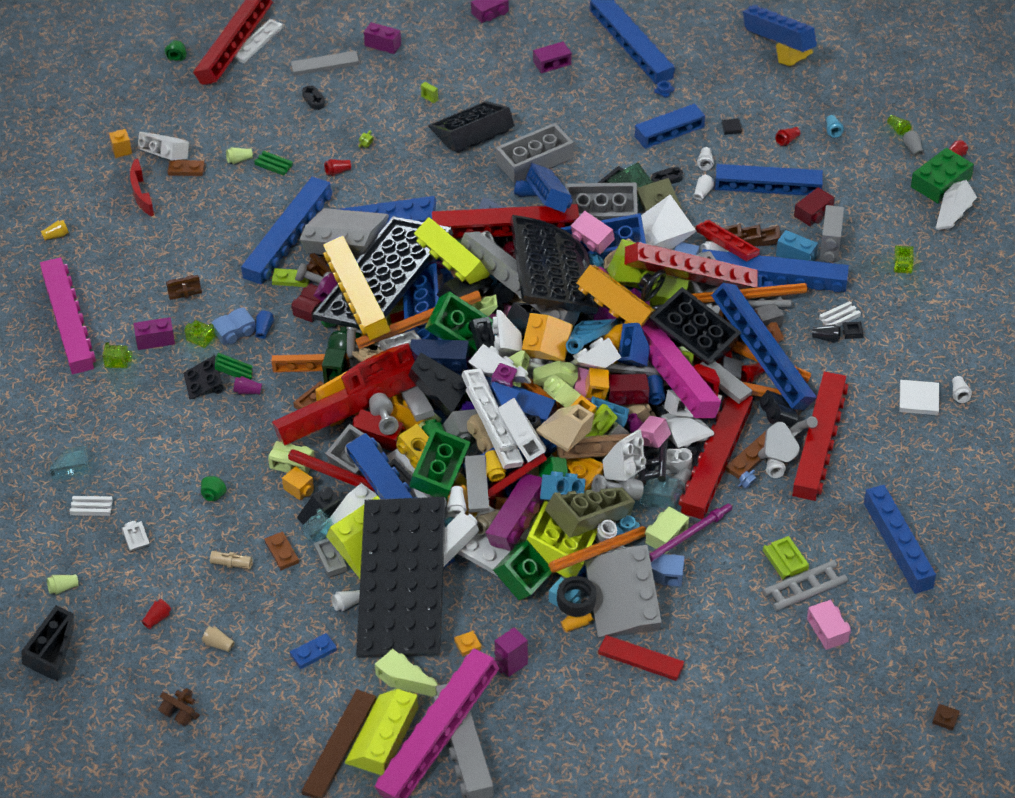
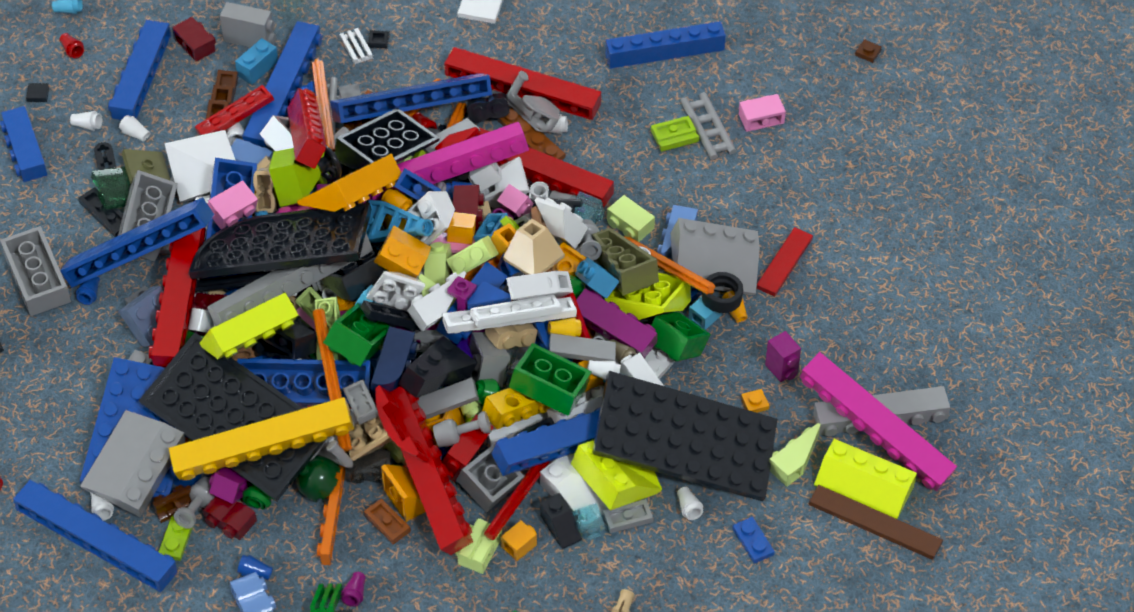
camera: 85 degrees left, 5 degrees up
(281, 550) = (610, 564): dark orange plate -> none
(333, 364) = (357, 489): dark green brick -> none
(714, 516) = (637, 196): magenta bar -> none
(747, 479) = (571, 147): medium blue plate -> none
(828, 333) = (382, 55): black cone -> none

